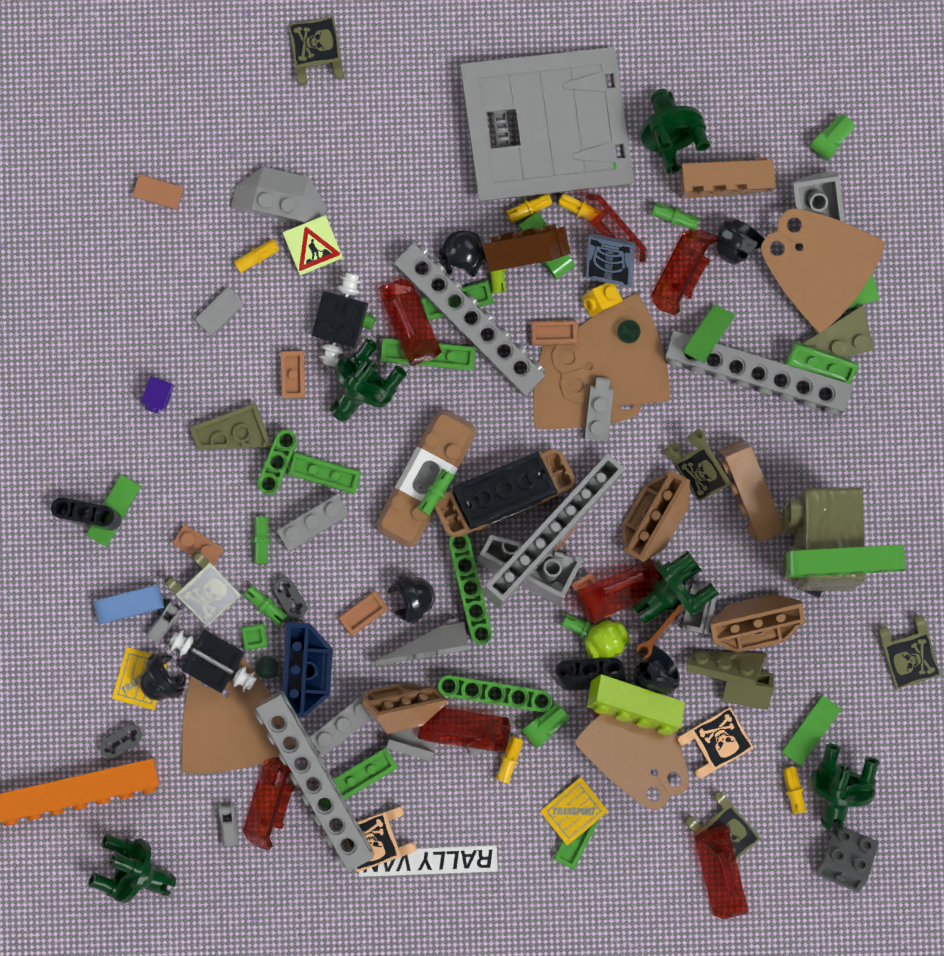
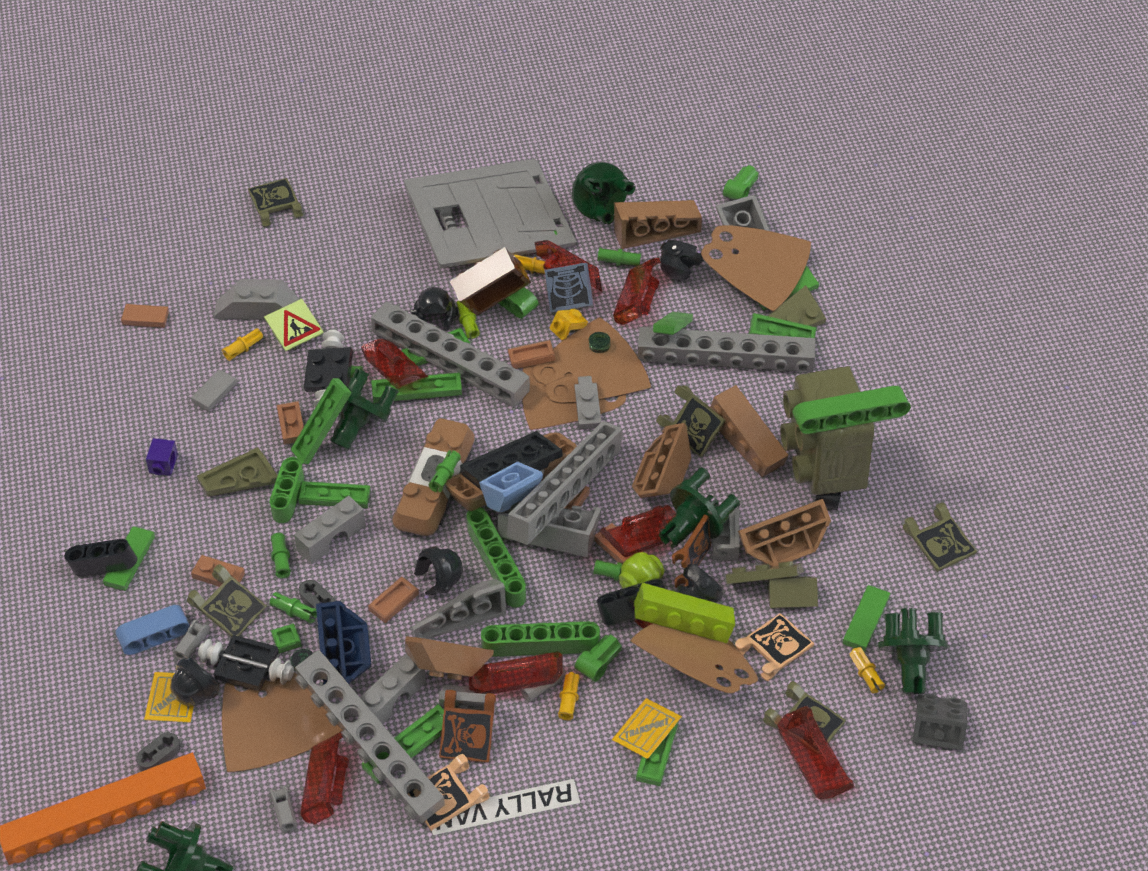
camera: 10 degrees left, 35 degrees down
(322, 400) = (321, 420): none -> bright green plate
(407, 784) = (467, 730): none -> flag
(496, 535) = (509, 486): none -> light blue slope

